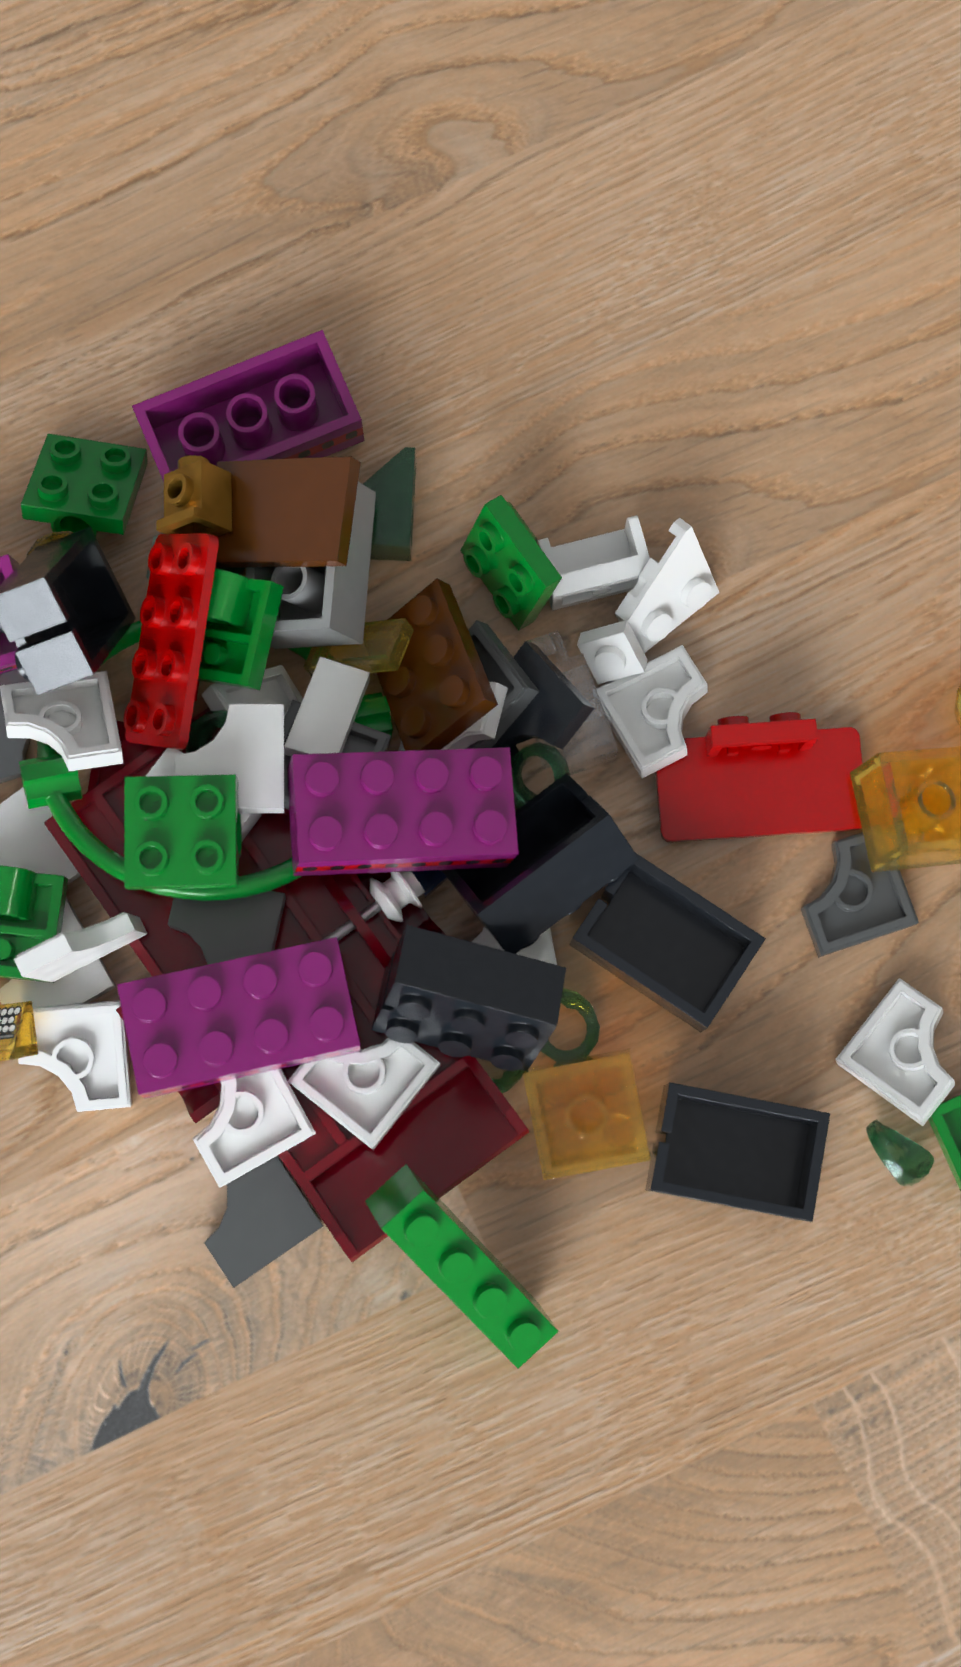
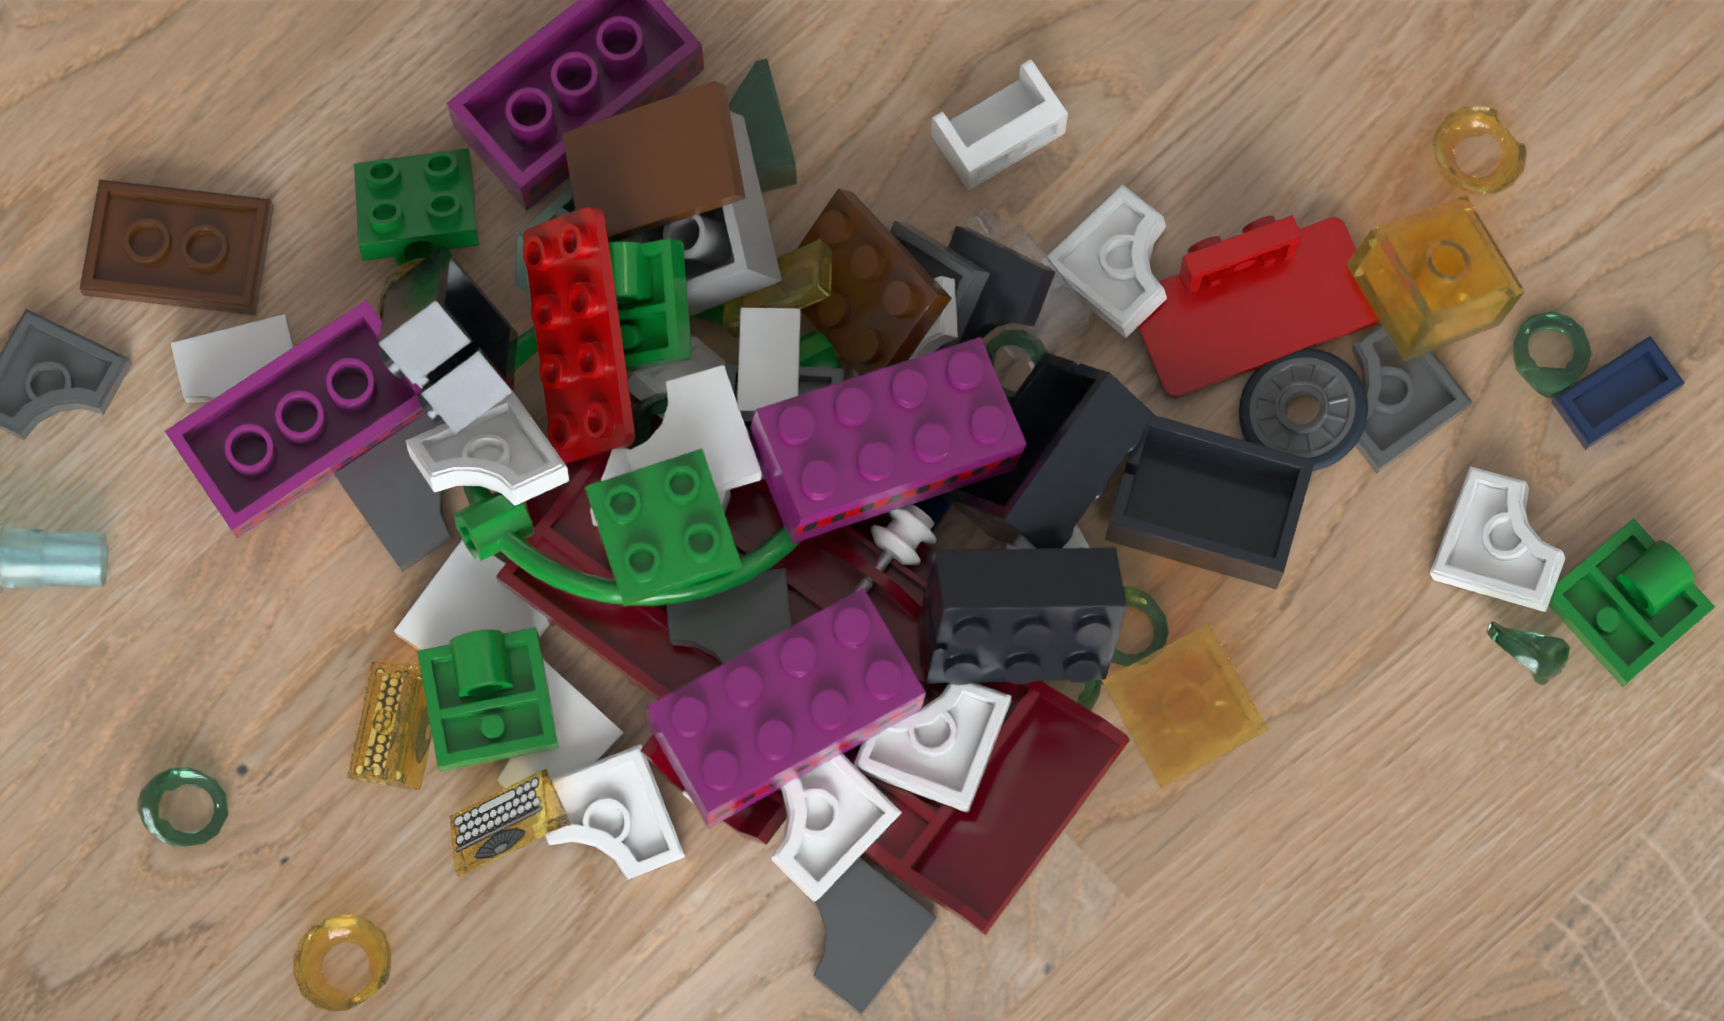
camera: 15 degrees left, 5 degrees down
(78, 948) = (586, 689): white tile -> none
(197, 499) = (556, 177): pearl gold brick -> none
(461, 1266) = (1104, 900): green brick -> none
(510, 562) = (910, 150): green plate -> none
(612, 652) = (1051, 212): white plate -> none
(669, 589) = (1088, 130): white wing -> none
(738, 1152) = (1357, 698): black piece -> none
(782, 854) = (1310, 374): none -> dark grey wheel

